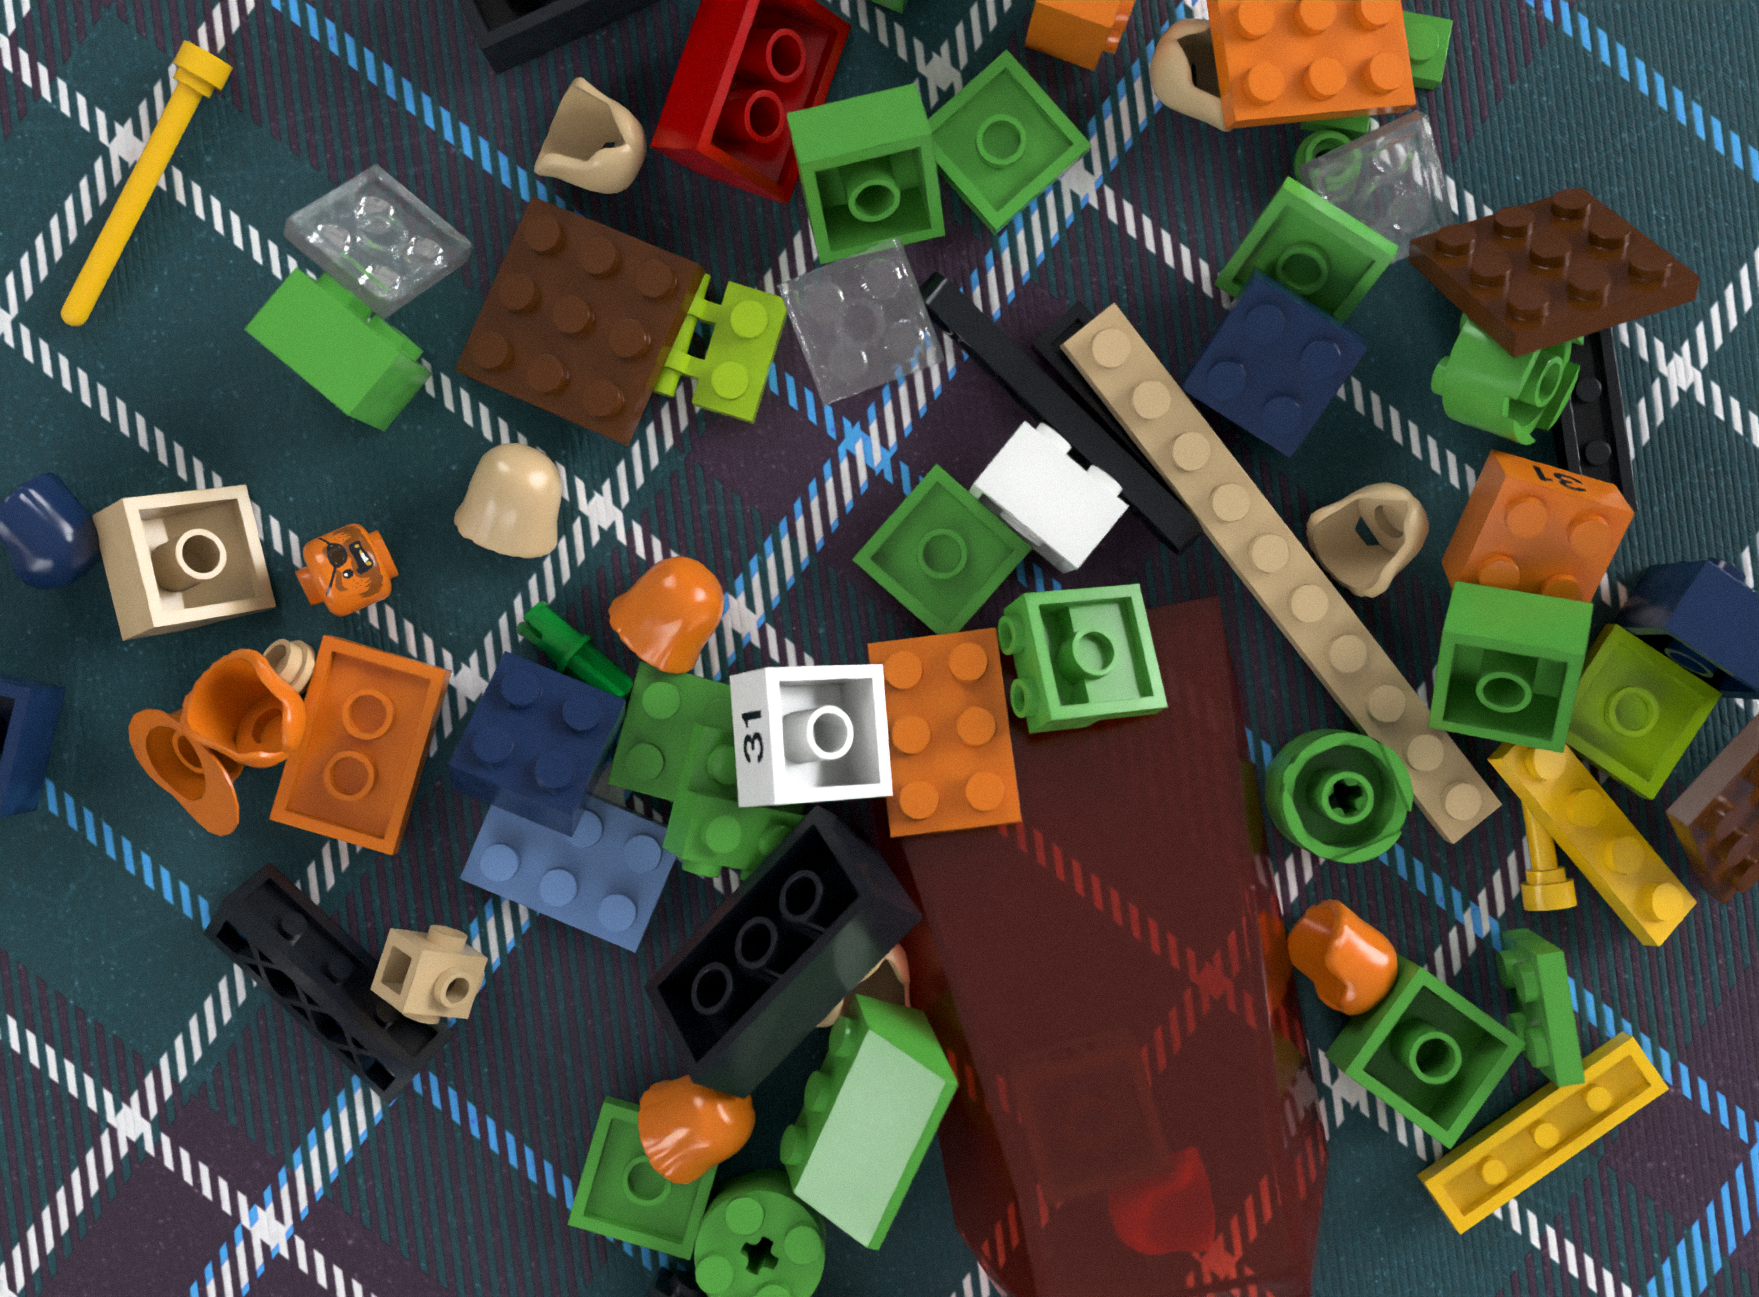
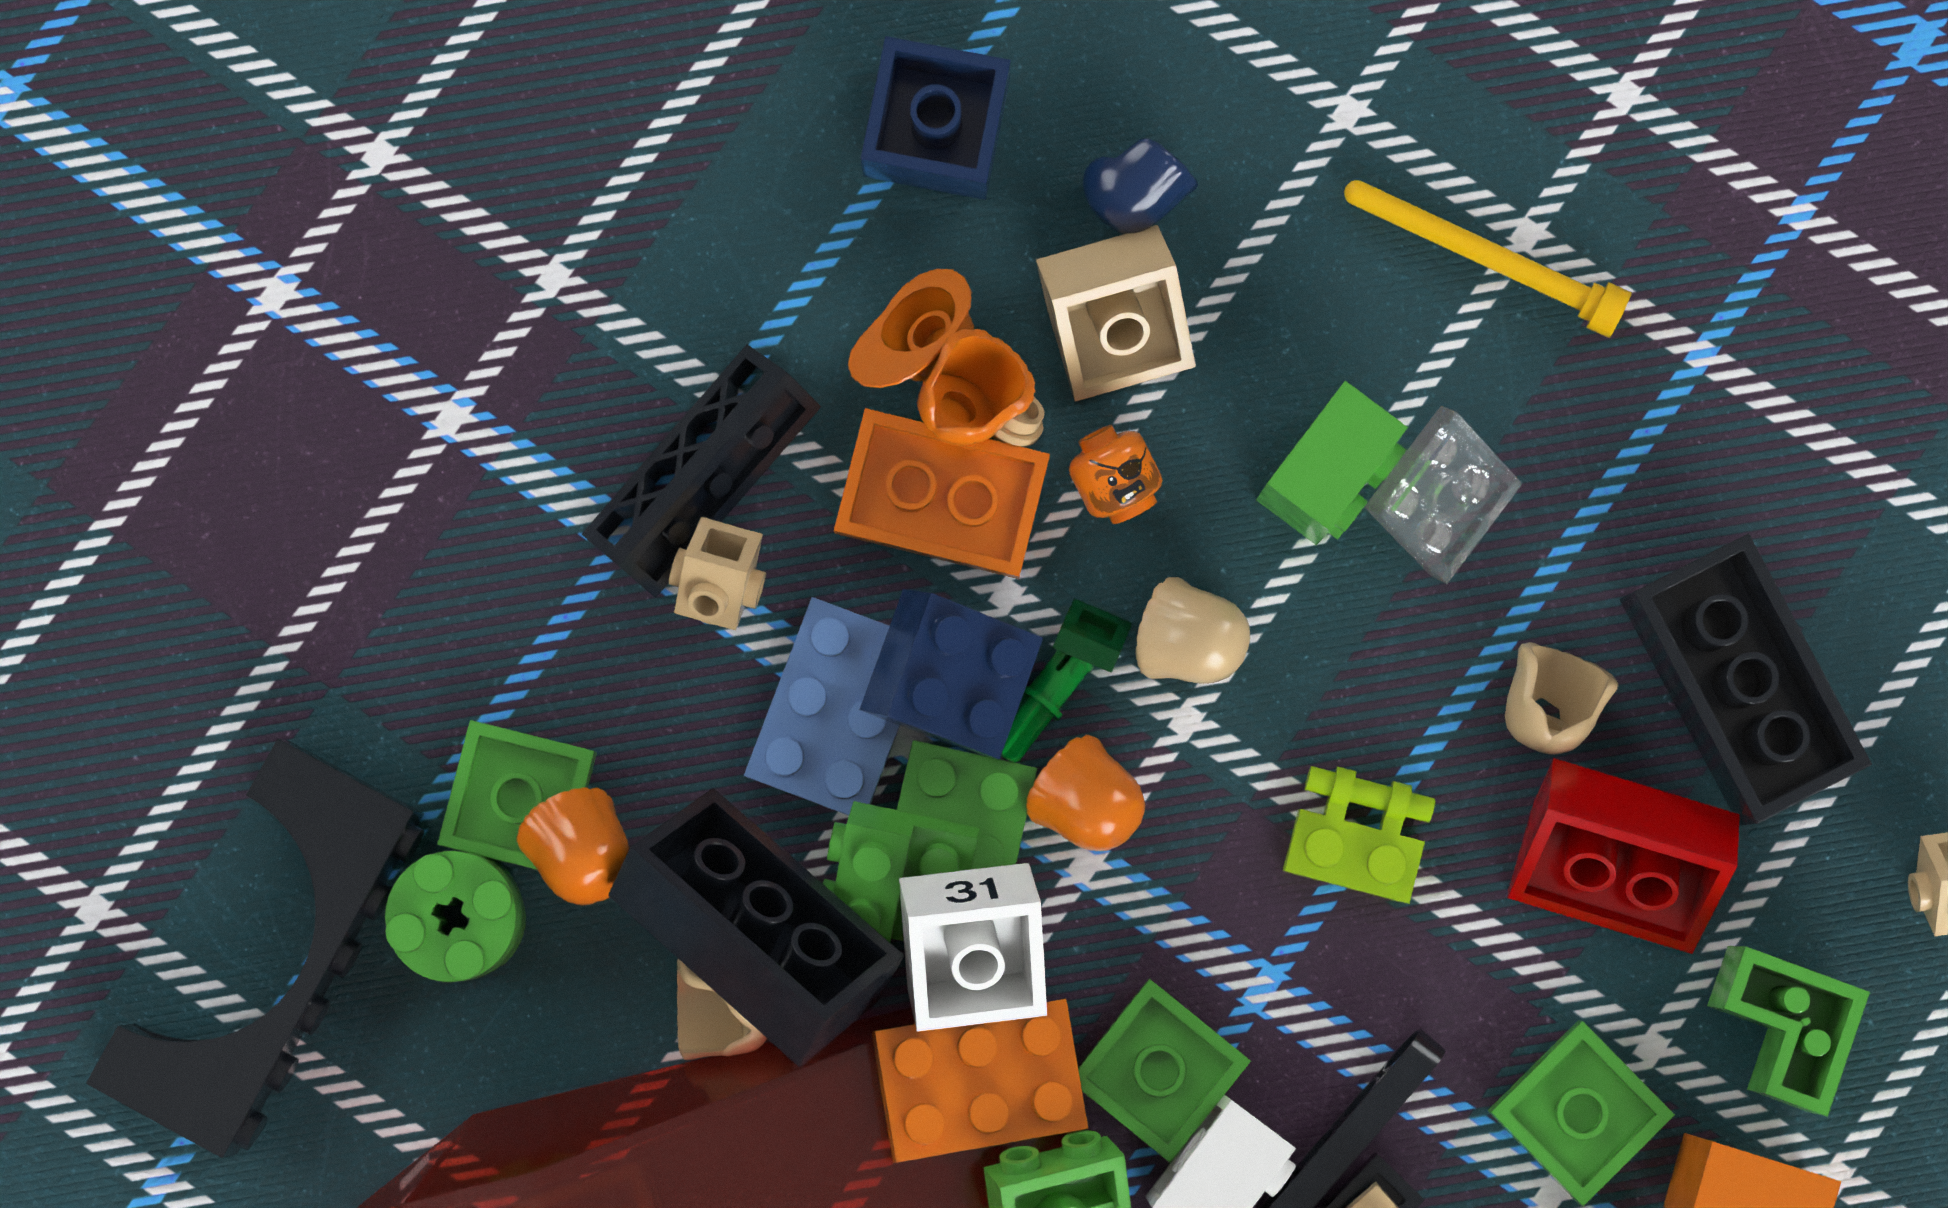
camera: 85 degrees right, 5 degrees down
(509, 600) = (1092, 635): none -> dark green tile
(580, 320) = (1376, 694): reddish brown plate -> none
(861, 321) = (1389, 978): clear plate -> none
(867, 172) = (1536, 979): bright green brick -> none
(868, 1117) = (594, 1019): slope -> none

